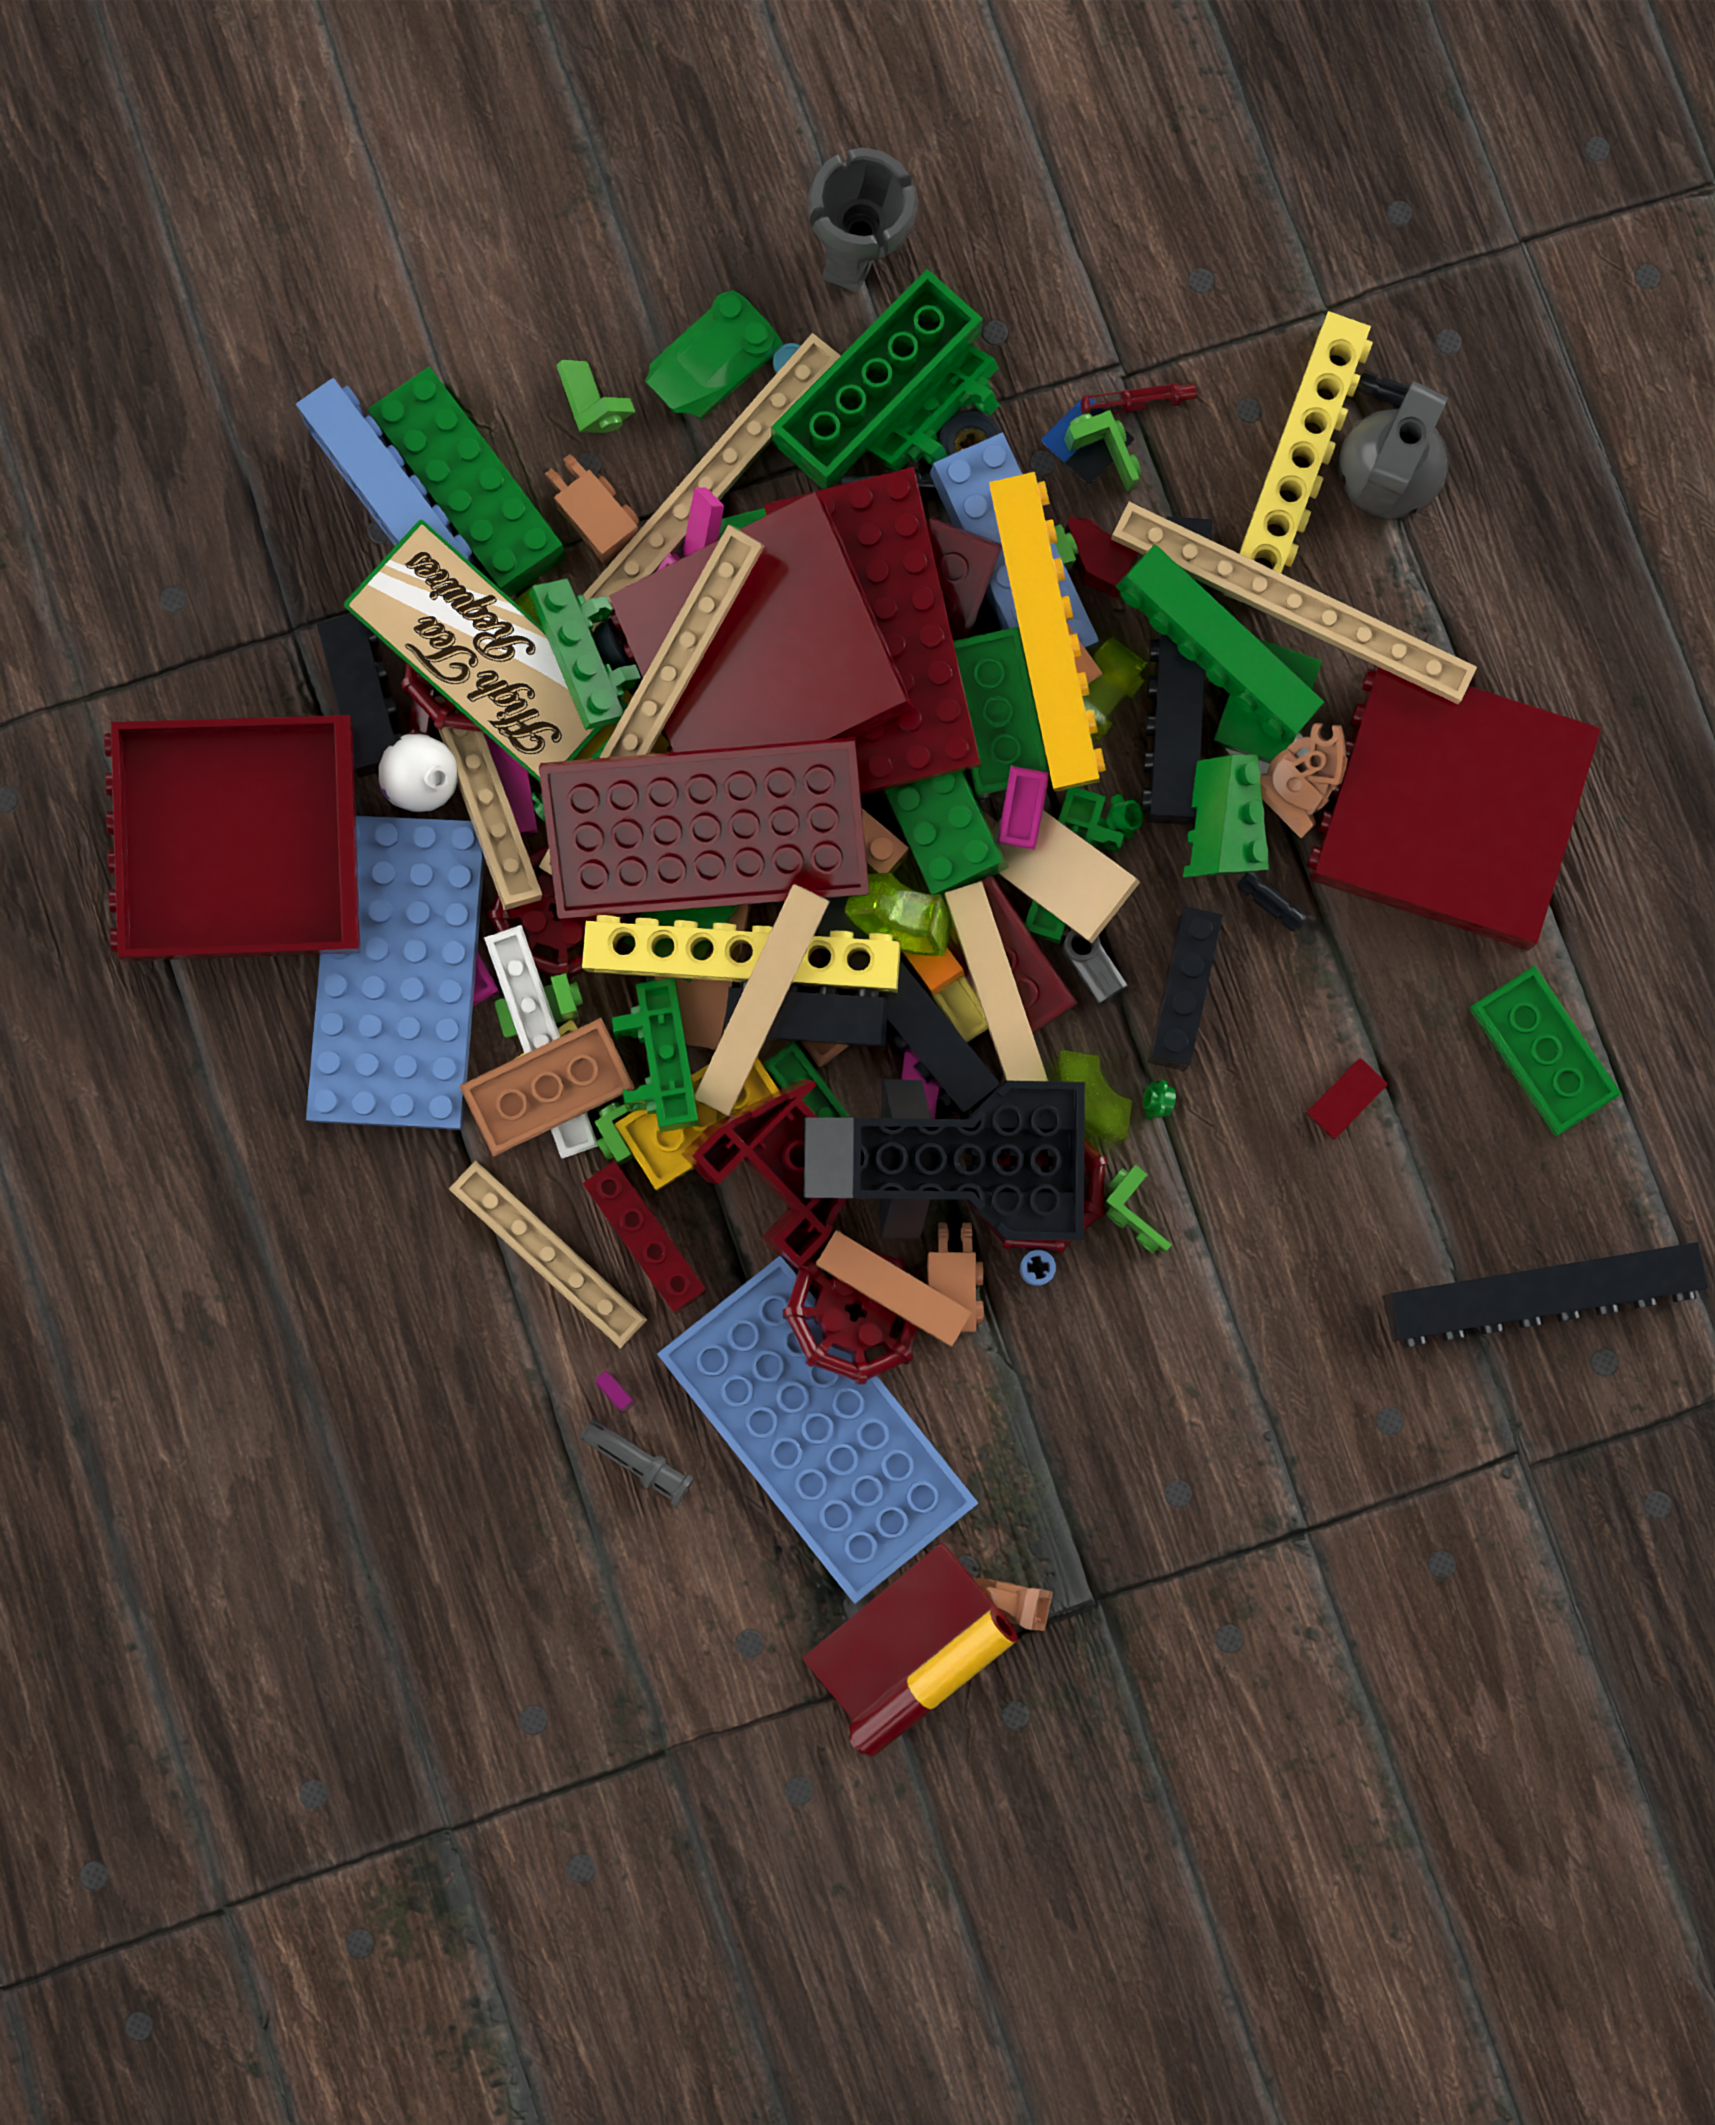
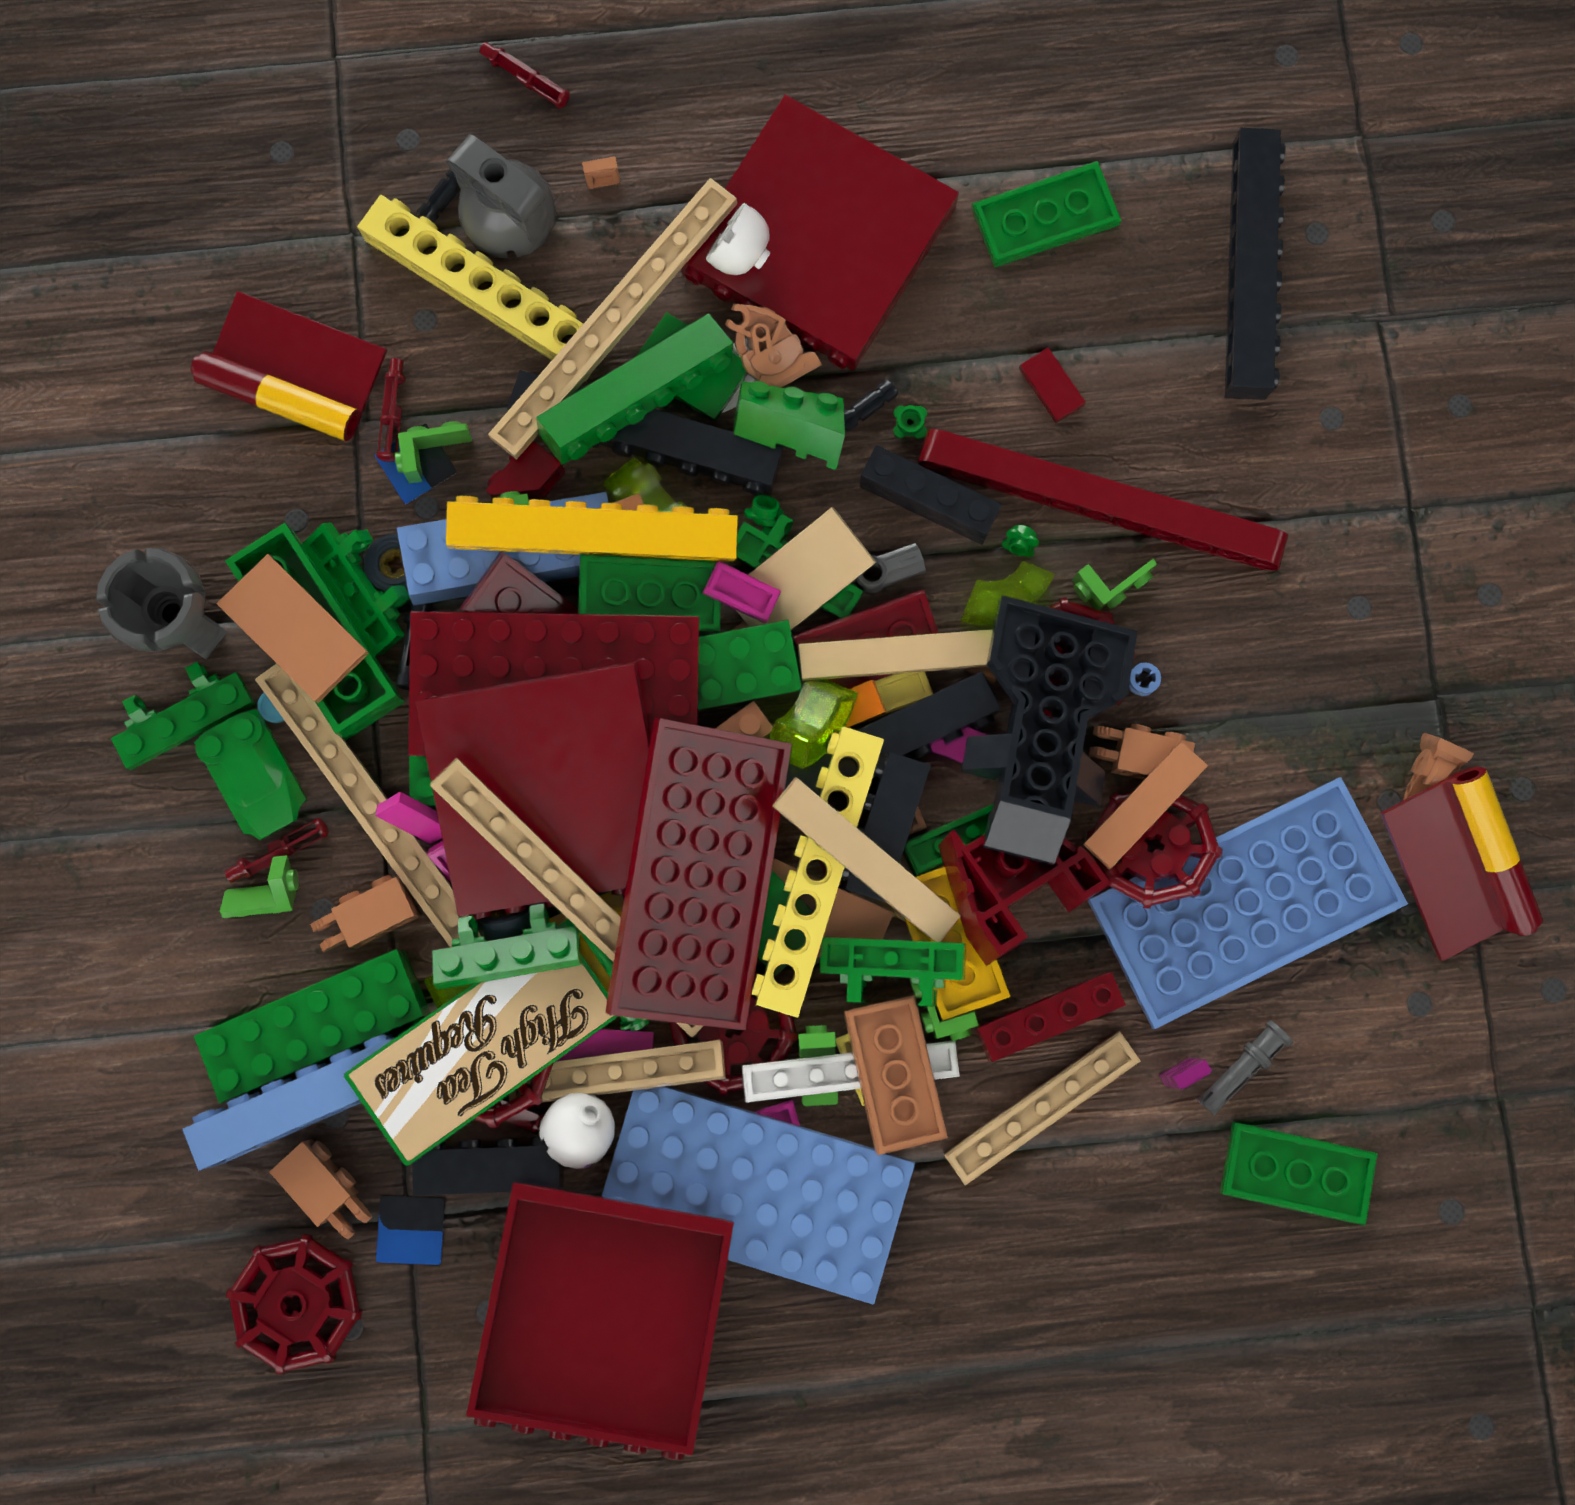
camera: 70 degrees left, 0 degrees up
(194, 555) = (315, 1301): none -> dark red plate
(282, 634) = (410, 1230): none -> sticker
(306, 531) = (320, 1186): none -> nougat hinge
(538, 1544) = (1298, 1173): none -> green tile
(641, 402) = (279, 847): none -> dark red piece
(775, 294) = (156, 733): none -> green hinge
(870, 355) = (292, 628): none -> nougat tile
(1159, 284) = (291, 366): none -> dark red door
(1227, 1182) = (1103, 500): none -> dark red beam
(1272, 944) = (913, 413): none -> green plate
(1409, 716) = (741, 243): none -> white cylinder
(1461, 554) = (601, 172): none -> nougat tile
(1554, 447) = (526, 75): none -> dark red piece

